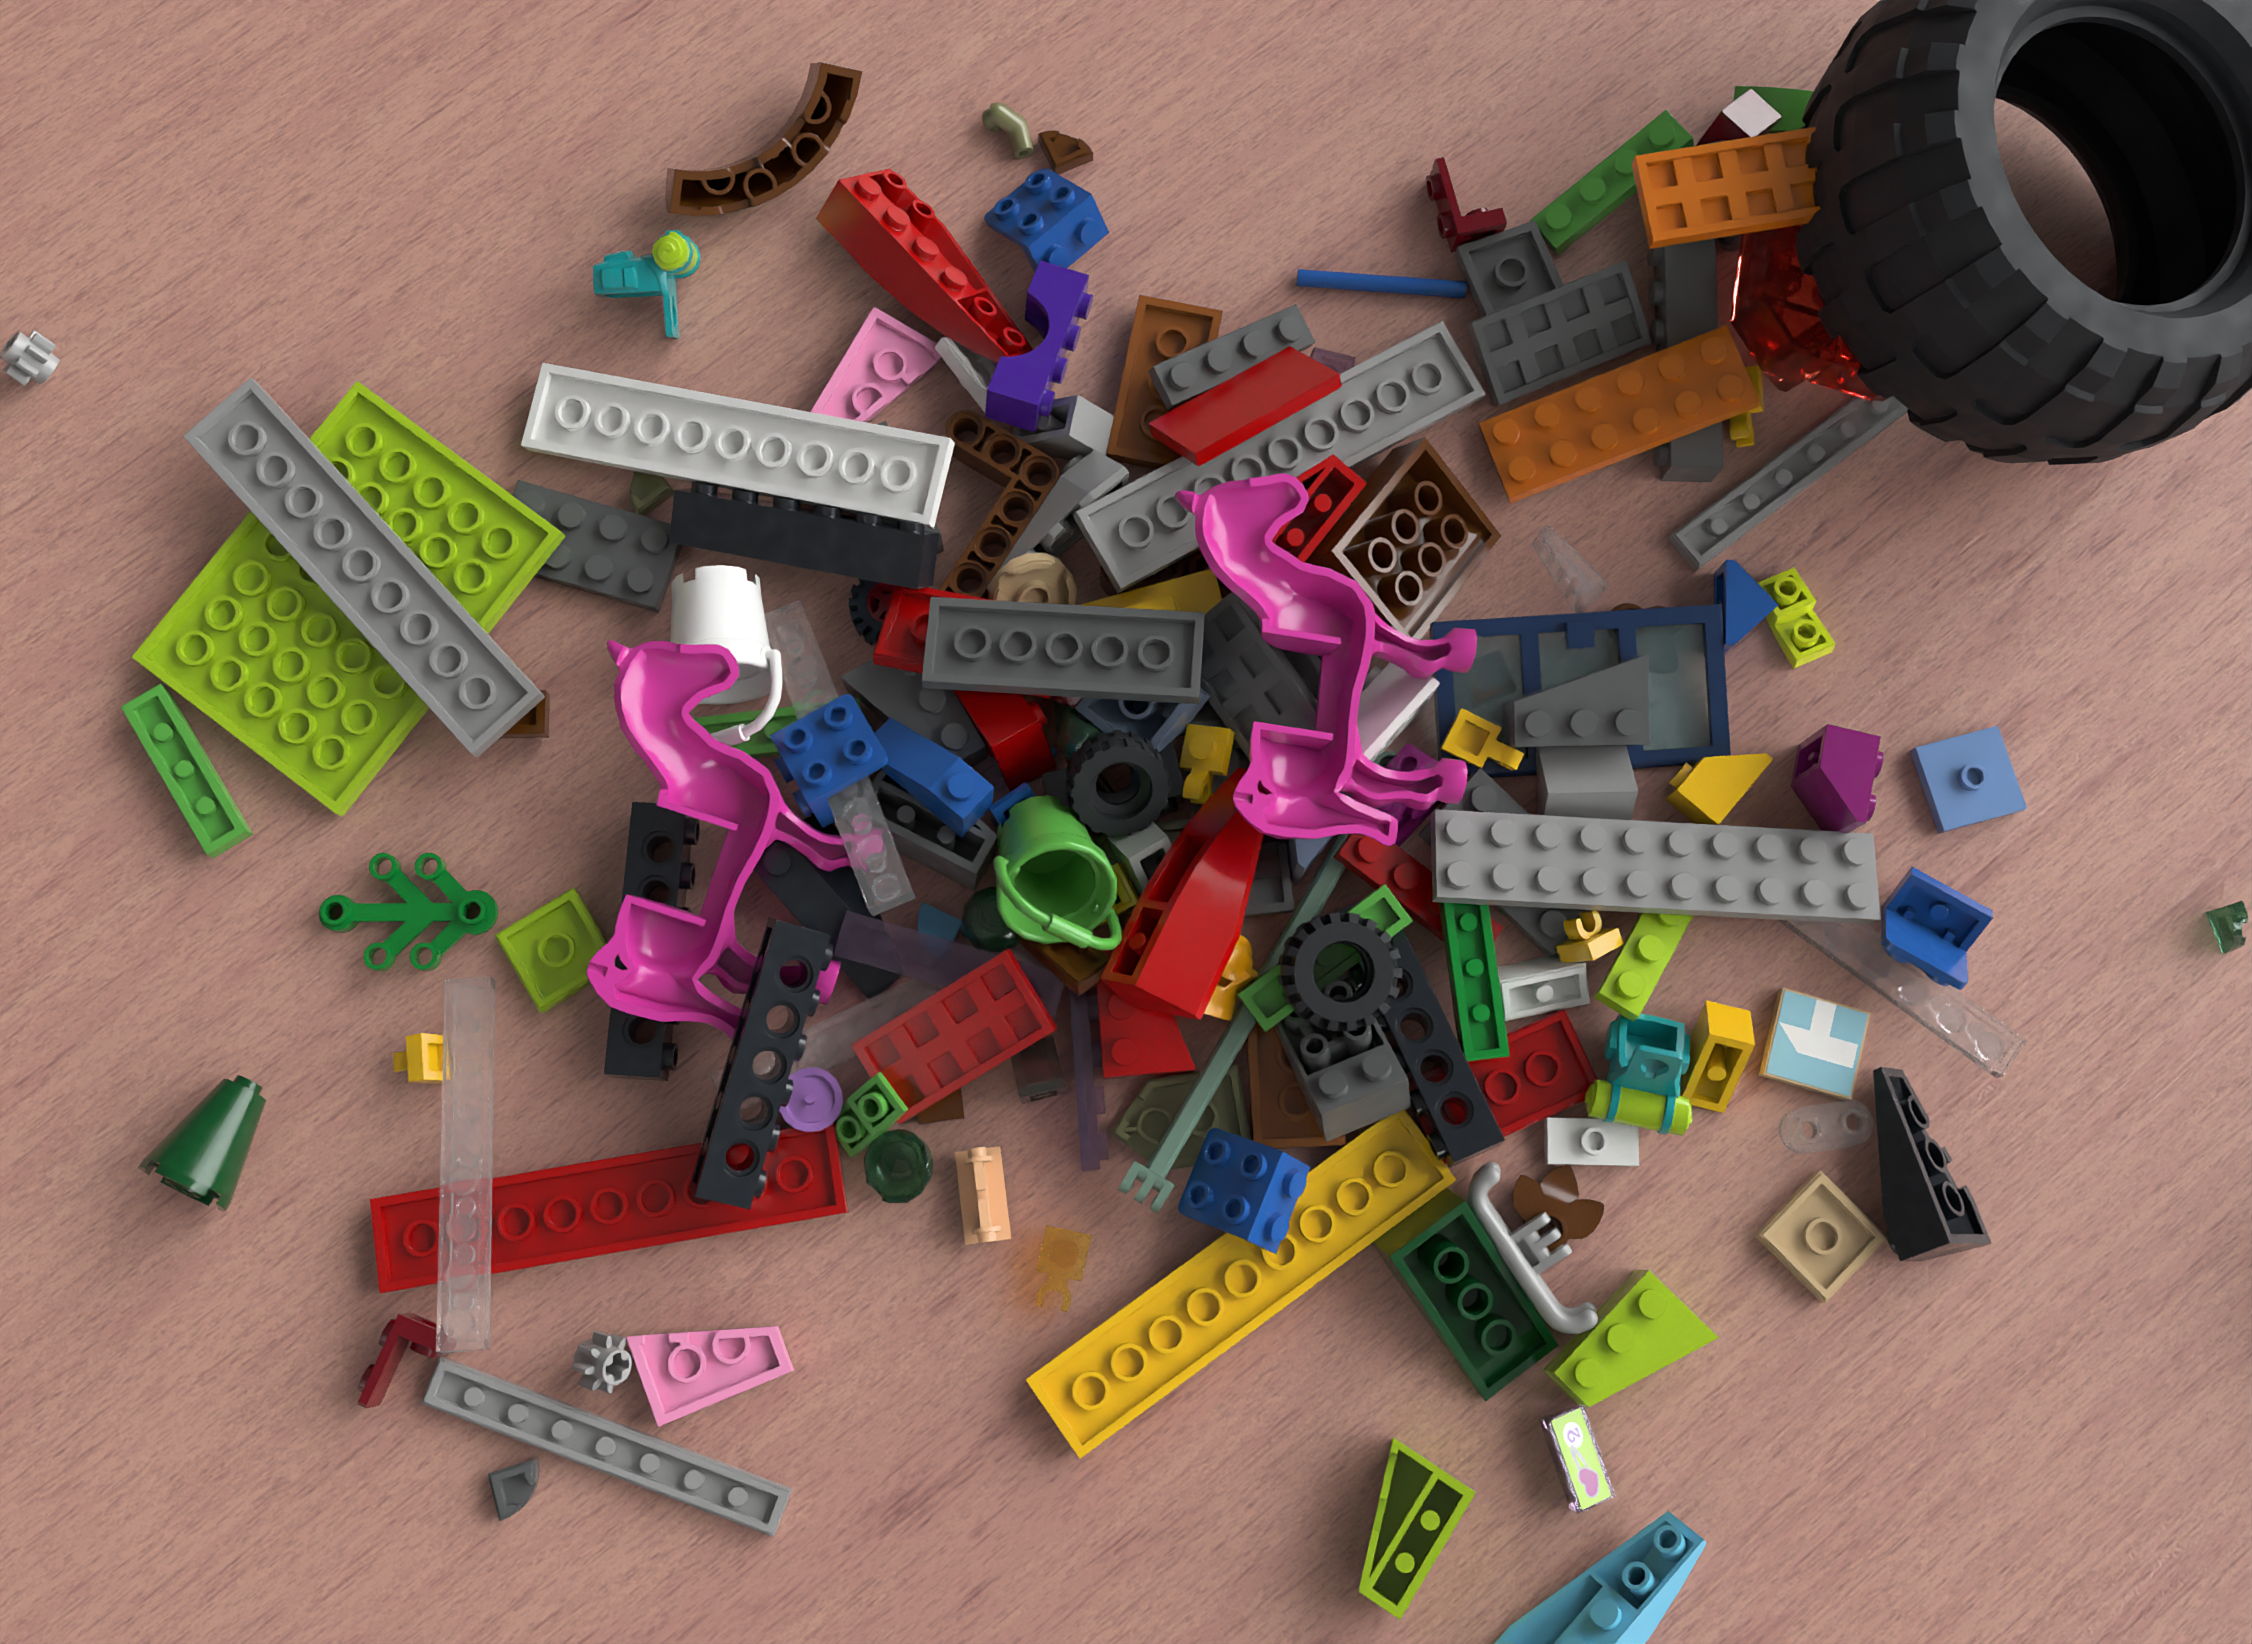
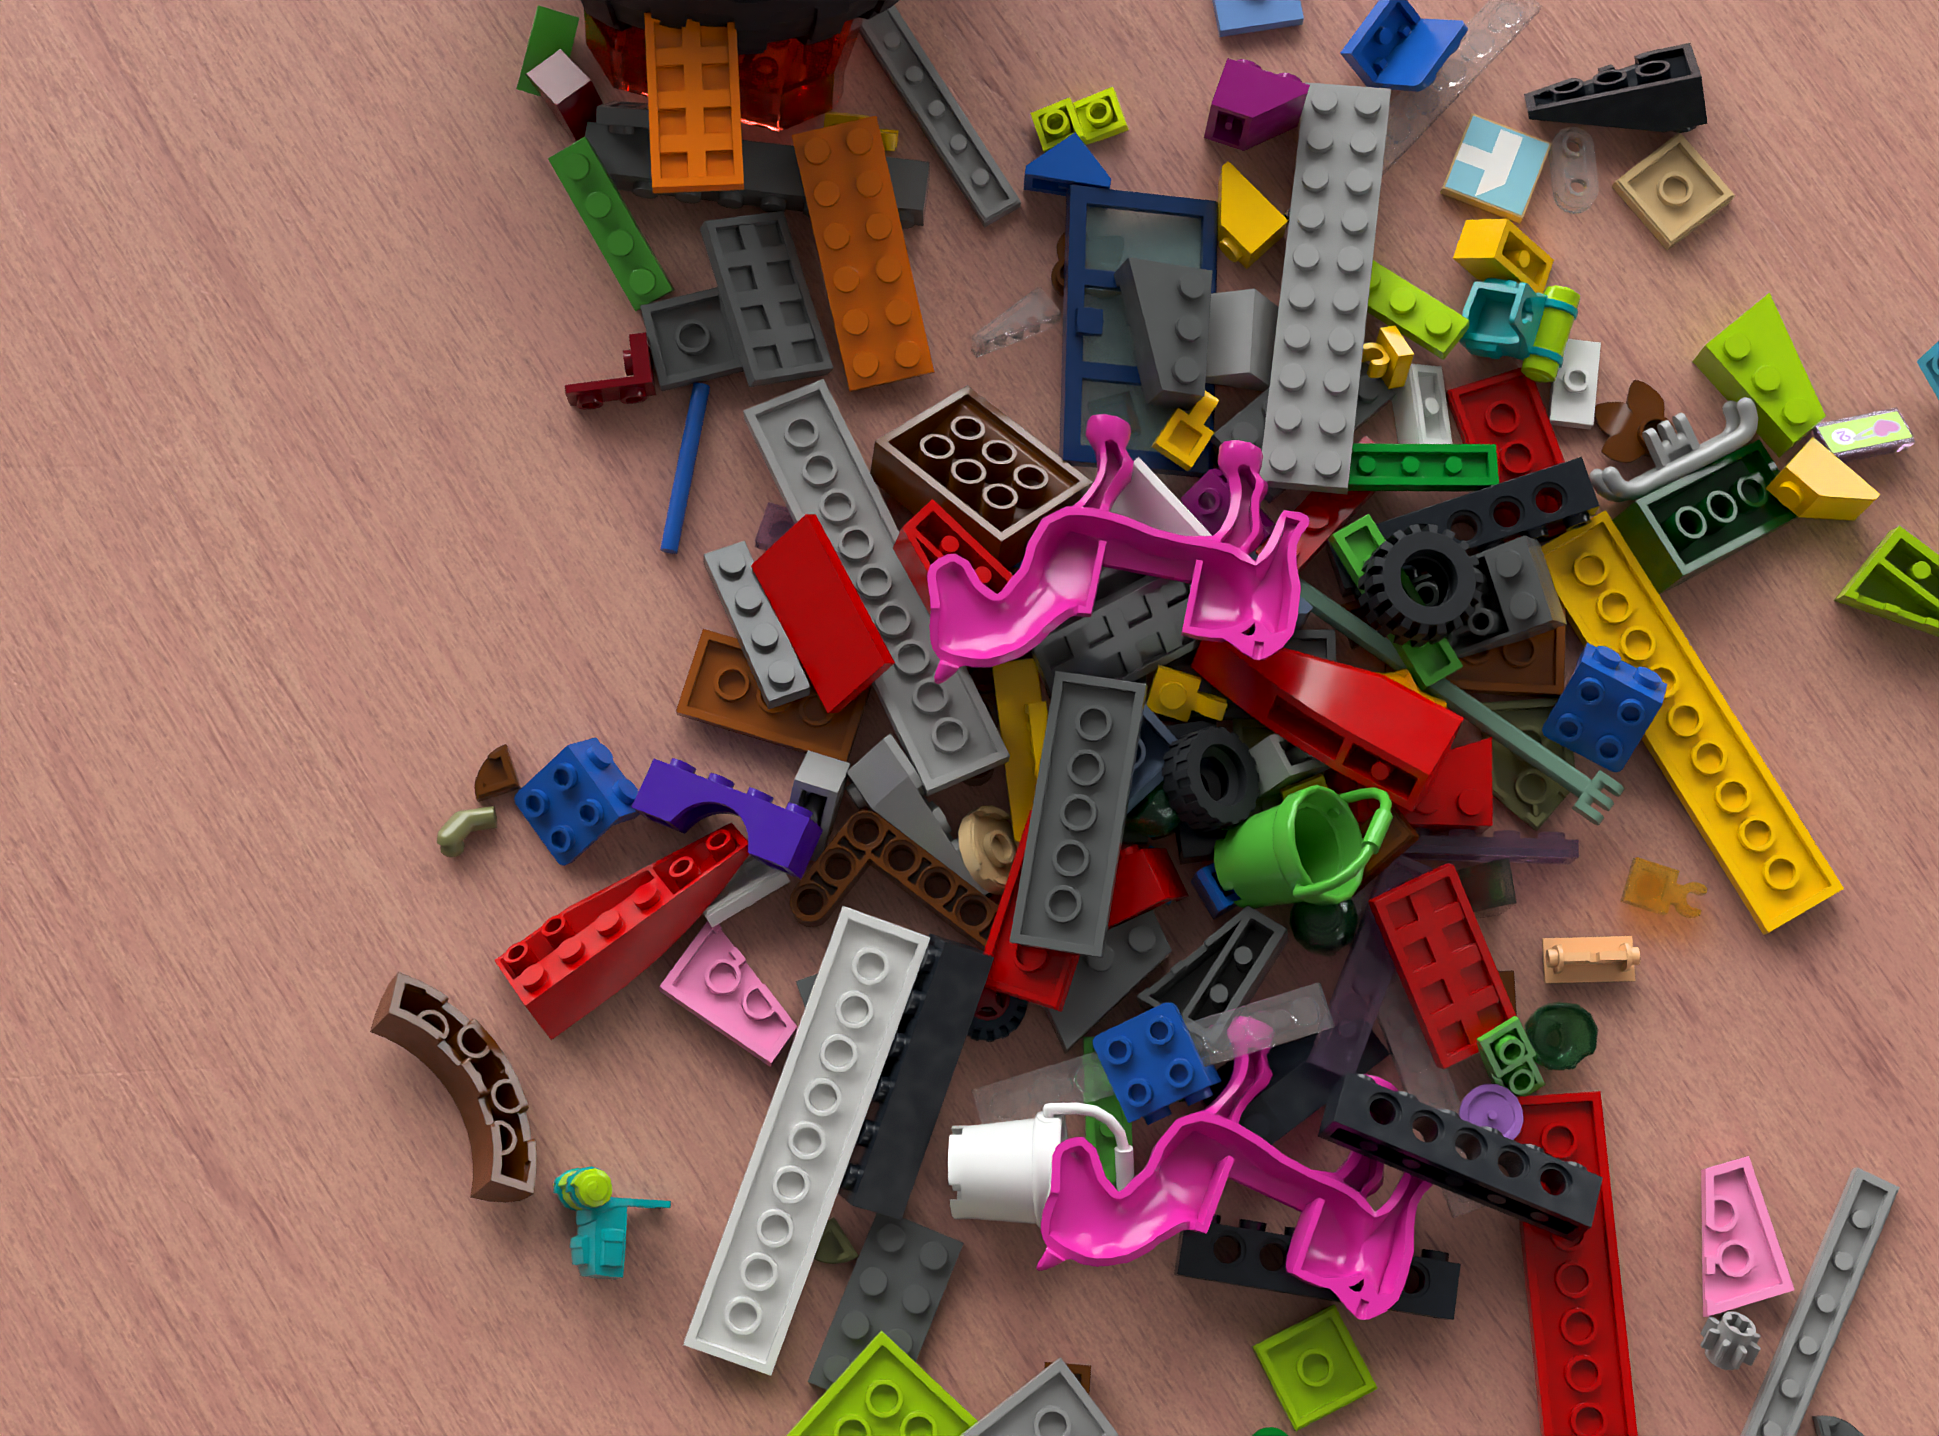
camera: 80 degrees left, 0 degrees up
(935, 777) = (1186, 960): blue slope -> none
(938, 923) = (1324, 972): dark azure tile -> none
(1513, 1410) = (1821, 486): none -> yellow slope

